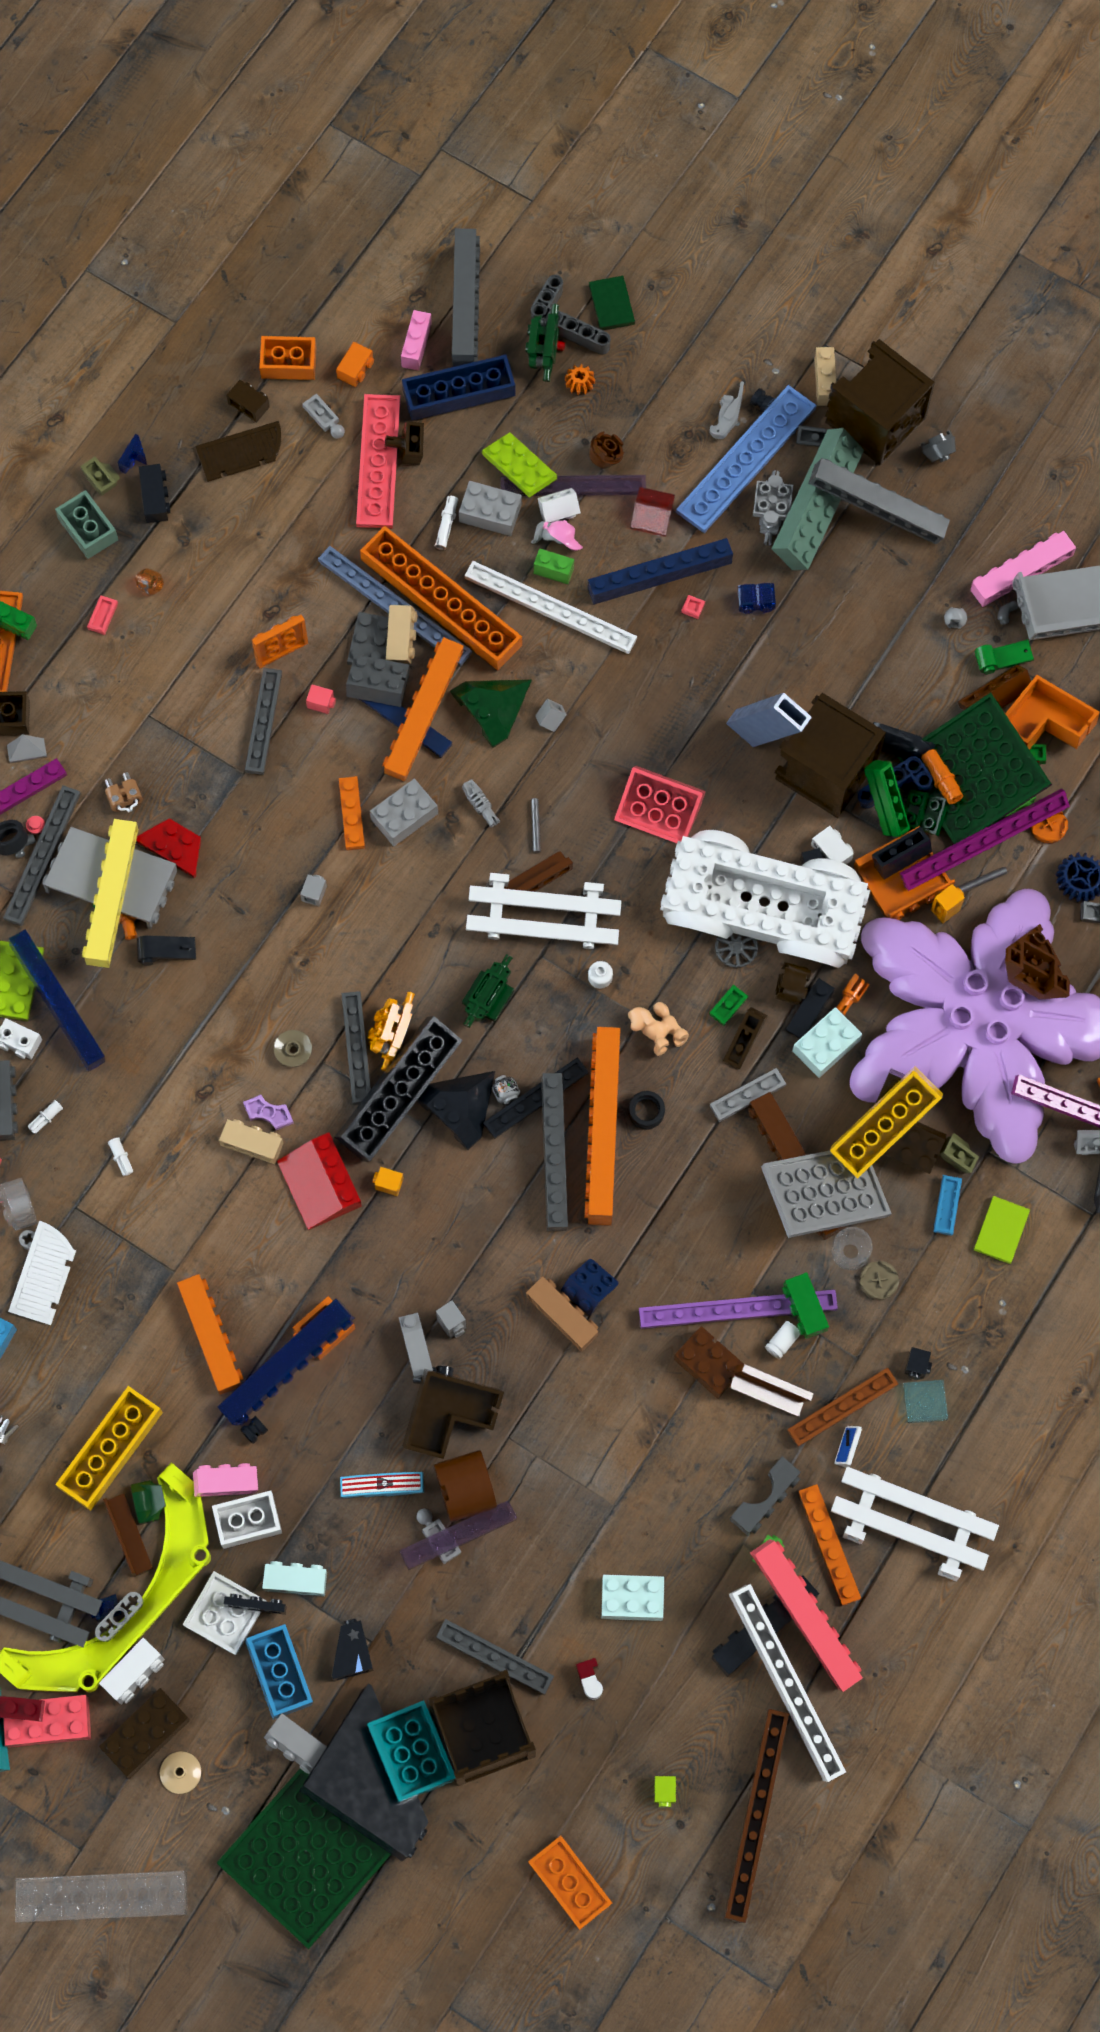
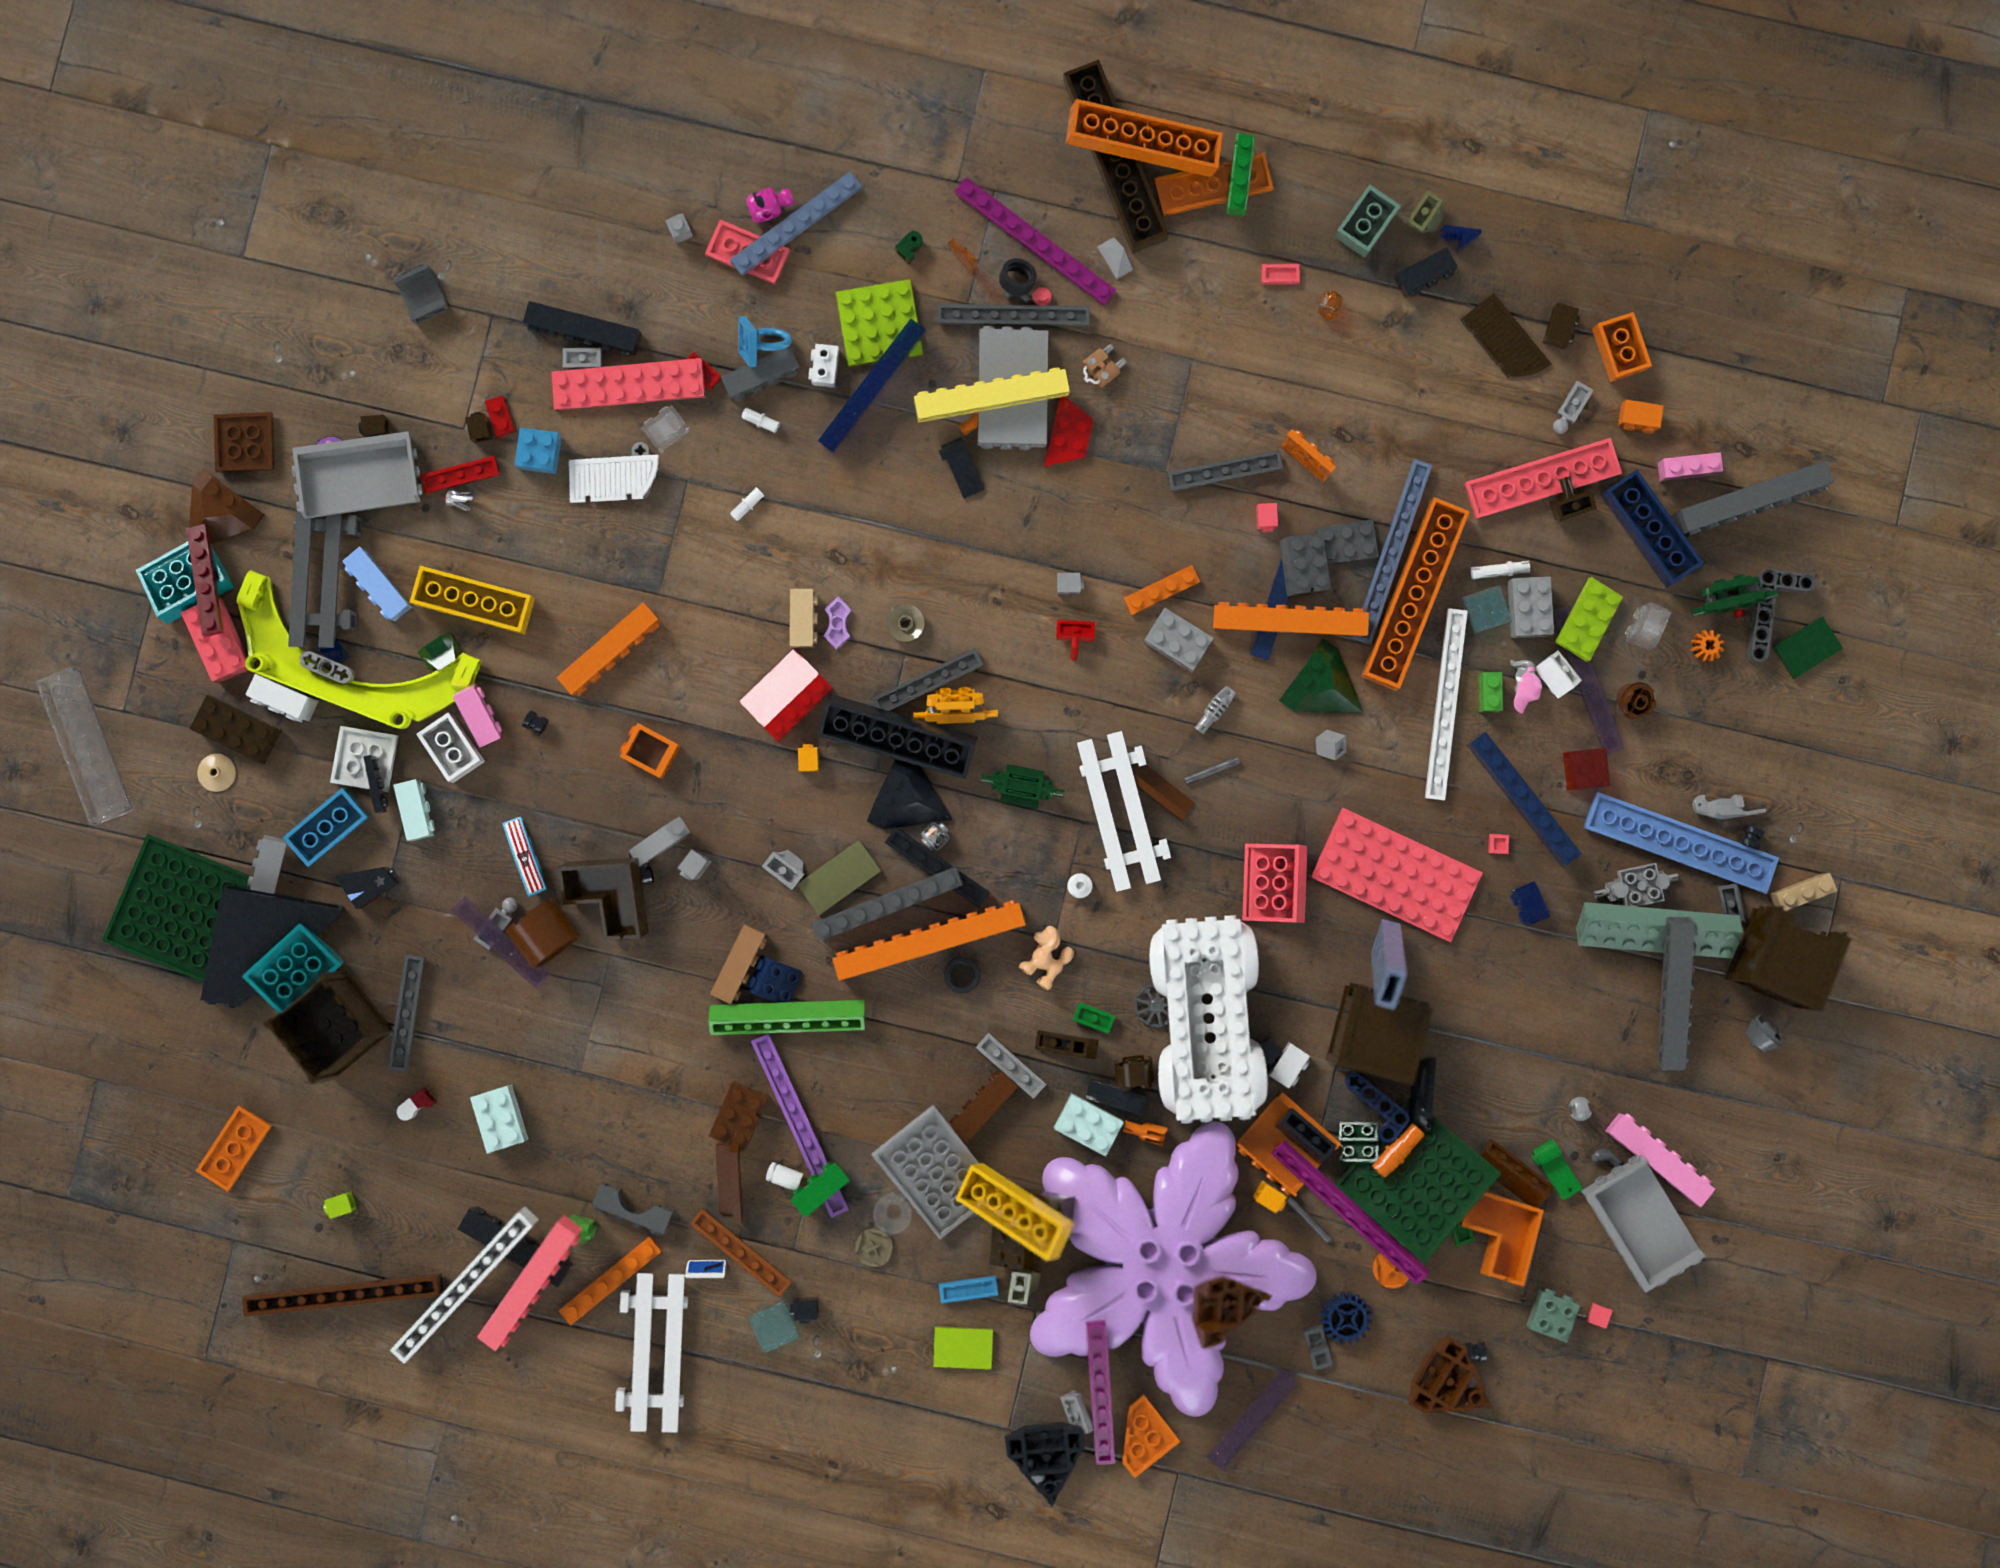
camera: 75 degrees right, 15 degrees up
(54, 1540) = (377, 584): none -> light blue brick
(128, 1535) = (404, 646): reddish brown panel -> none
(286, 1362) = (601, 729): clear blue brick -> none
(361, 899) = (1075, 632): none -> red plate
(401, 634) = (1361, 569): tan brick -> none
(478, 545) = (1487, 609): none -> clear light blue plate
(486, 1239) = (785, 867): none -> light grey slope
(512, 1193) = (839, 877): none -> olive tile
(544, 418) = (1647, 626): none -> clear brick
(629, 1284) = (787, 1017): none -> bright green brick
(689, 701) = (1396, 875): none -> coral plate
(887, 798) = (1354, 1104): green brick -> none

